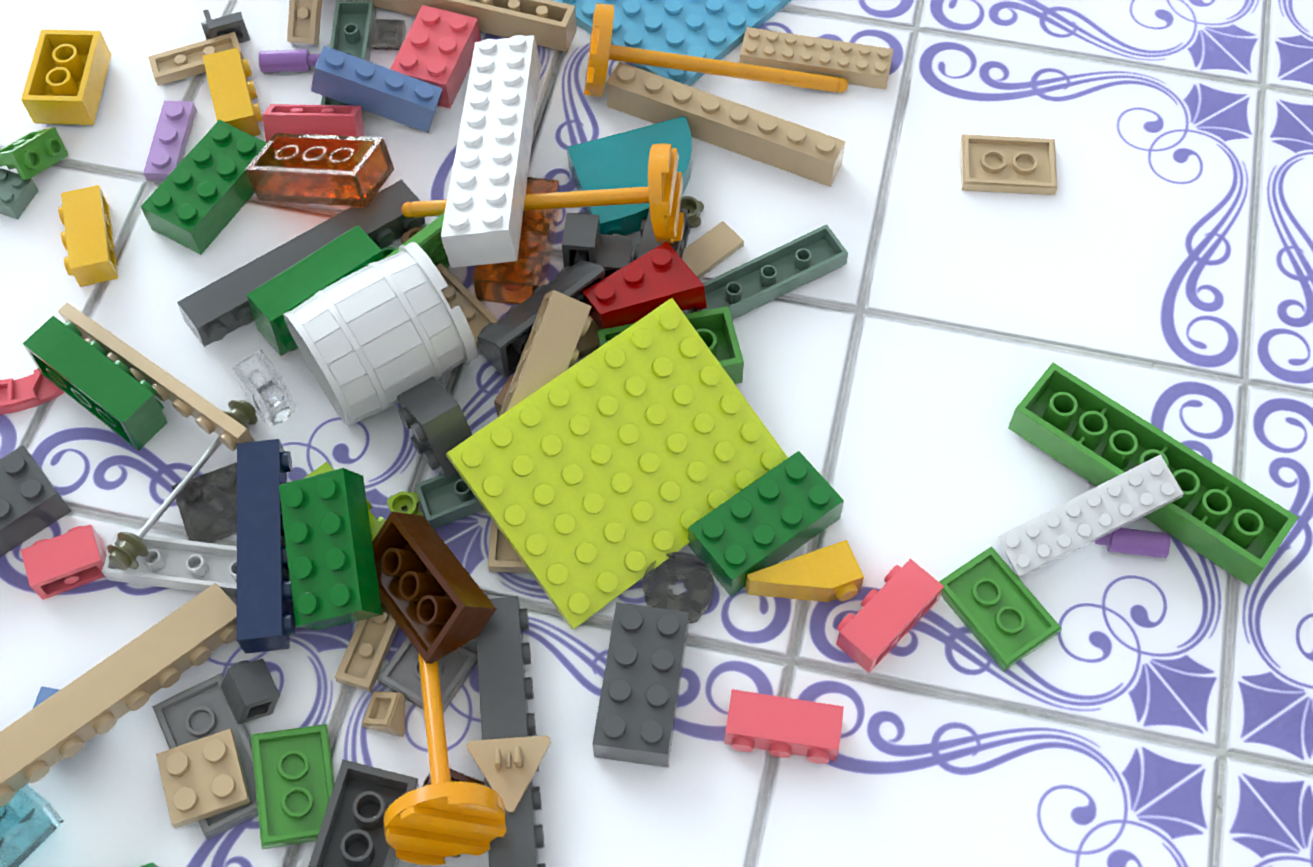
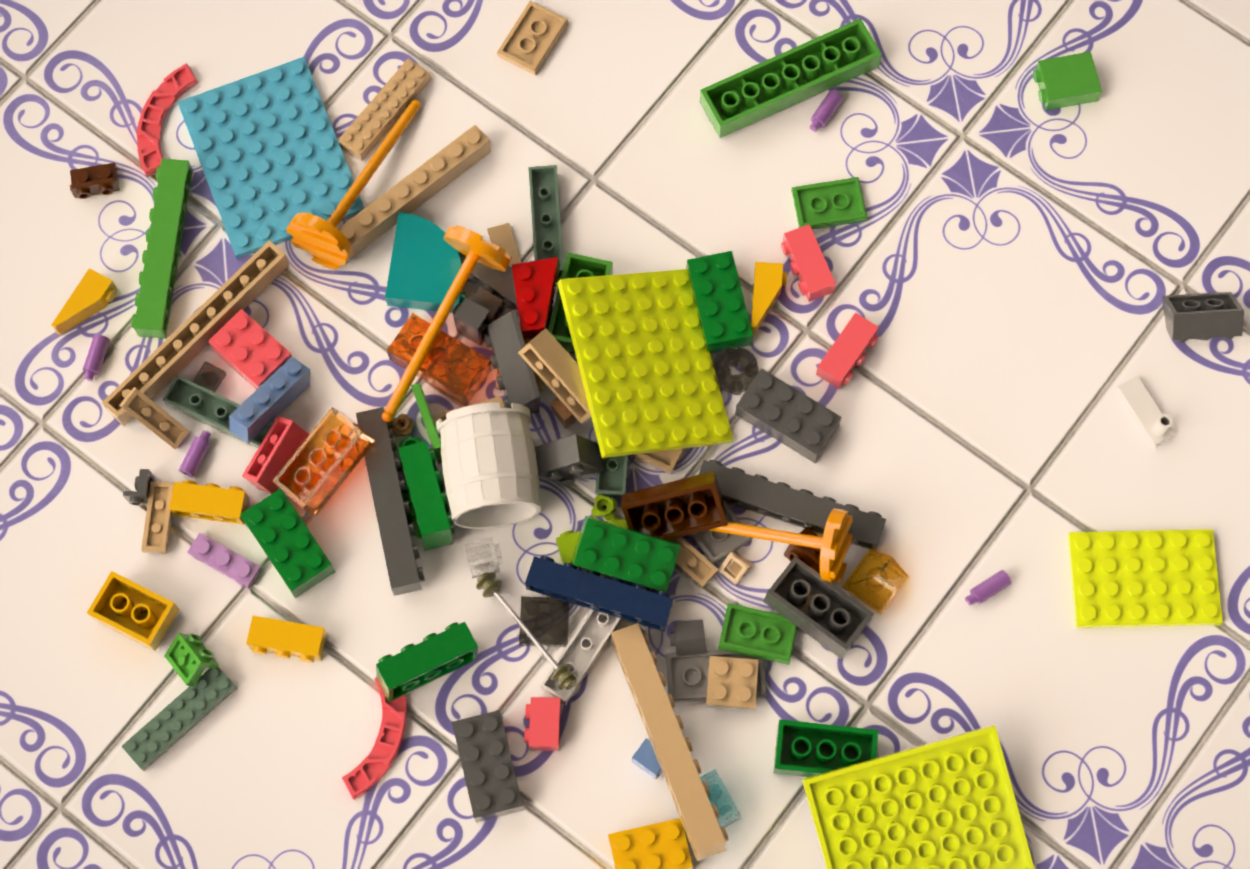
camera: 65 degrees left, 10 degrees up
(184, 399) = (468, 609): tan plate -> none
(493, 154) = (375, 339): white brick -> none
(509, 764) = (806, 505): tan piece -> none
(1090, 516) = (806, 125): white piece -> none

